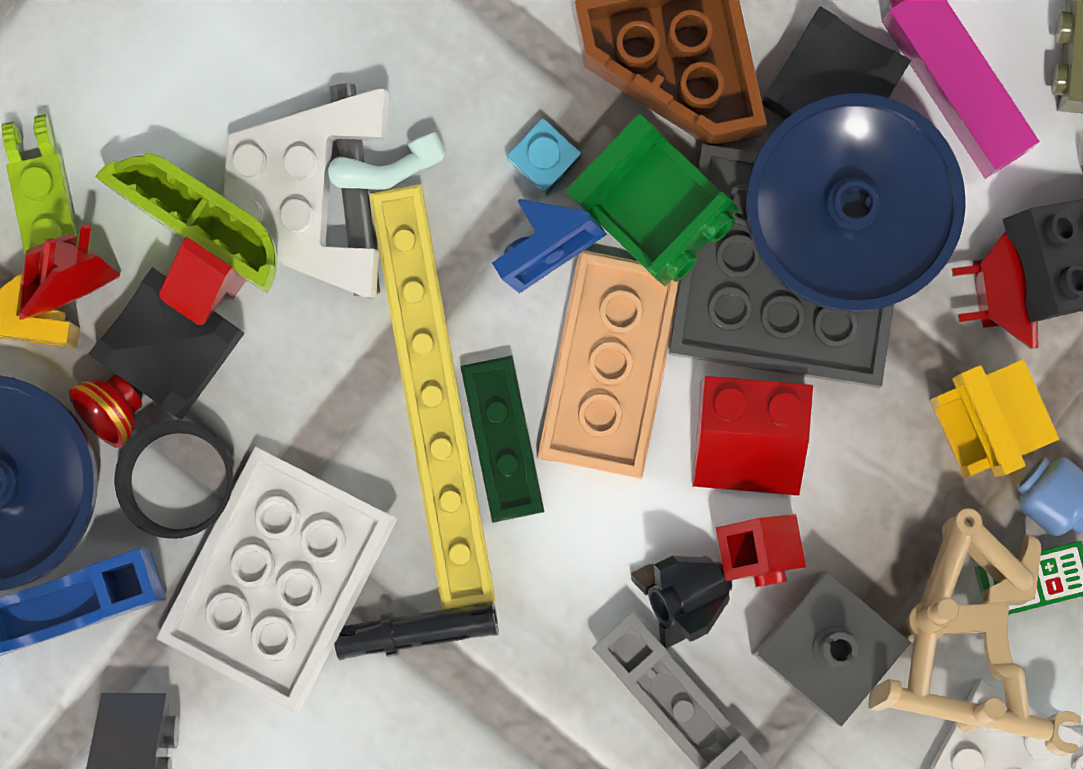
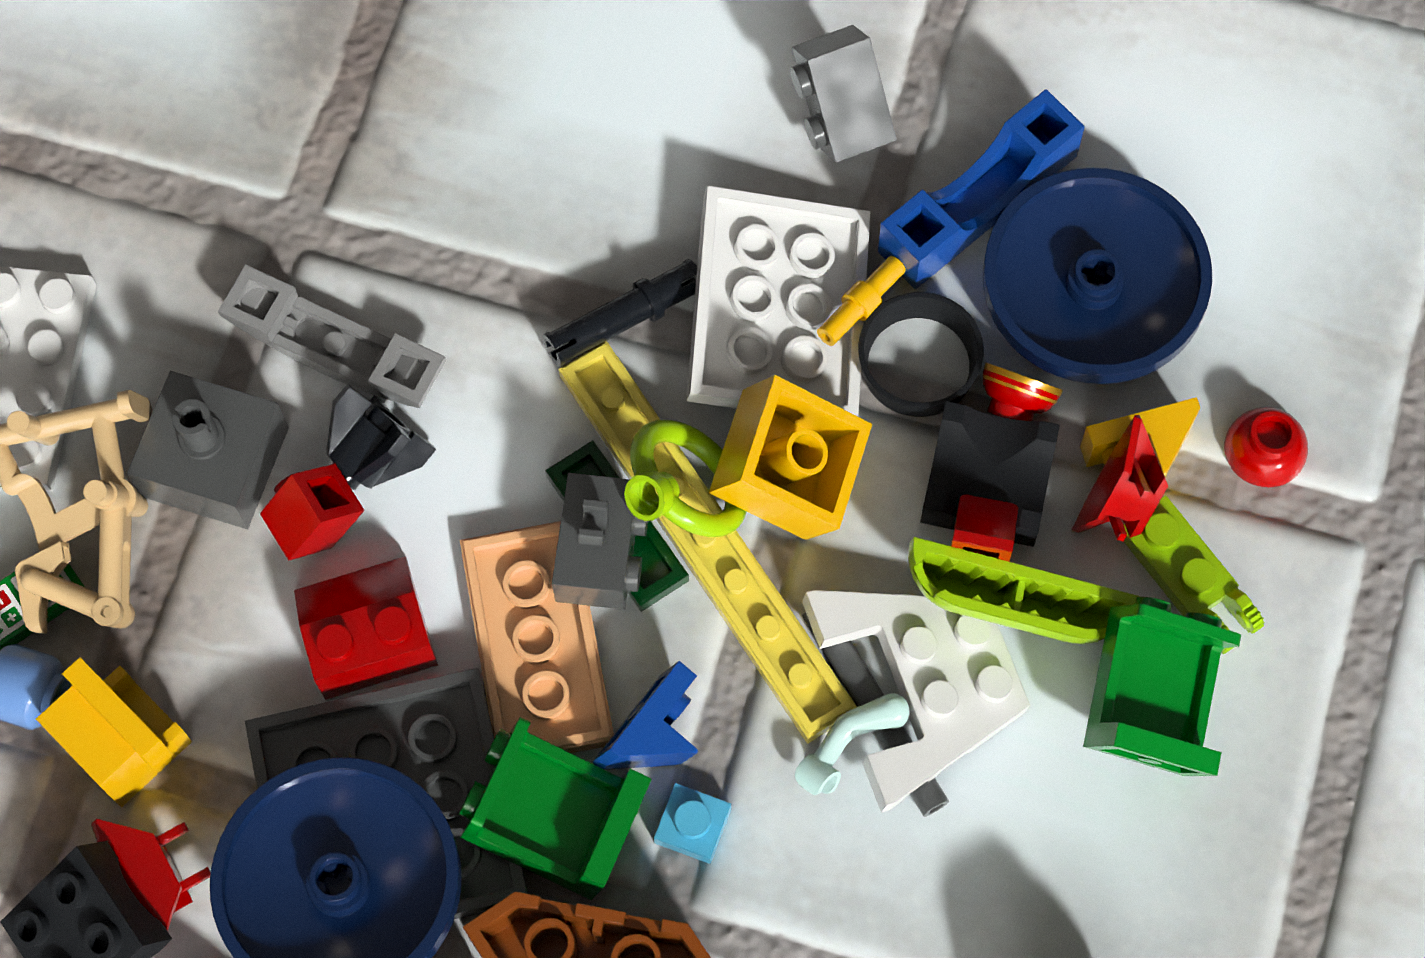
camera: 160 degrees right, 15 degrees down
(120, 94) = (1158, 687): none -> green panel
(204, 548) = (861, 300): none -> yellow bar
(332, 418) = (790, 458): none -> yellow brick
(462, 424) = (640, 489): none -> lime piece
(525, 415) = (596, 544): none -> dark grey brick

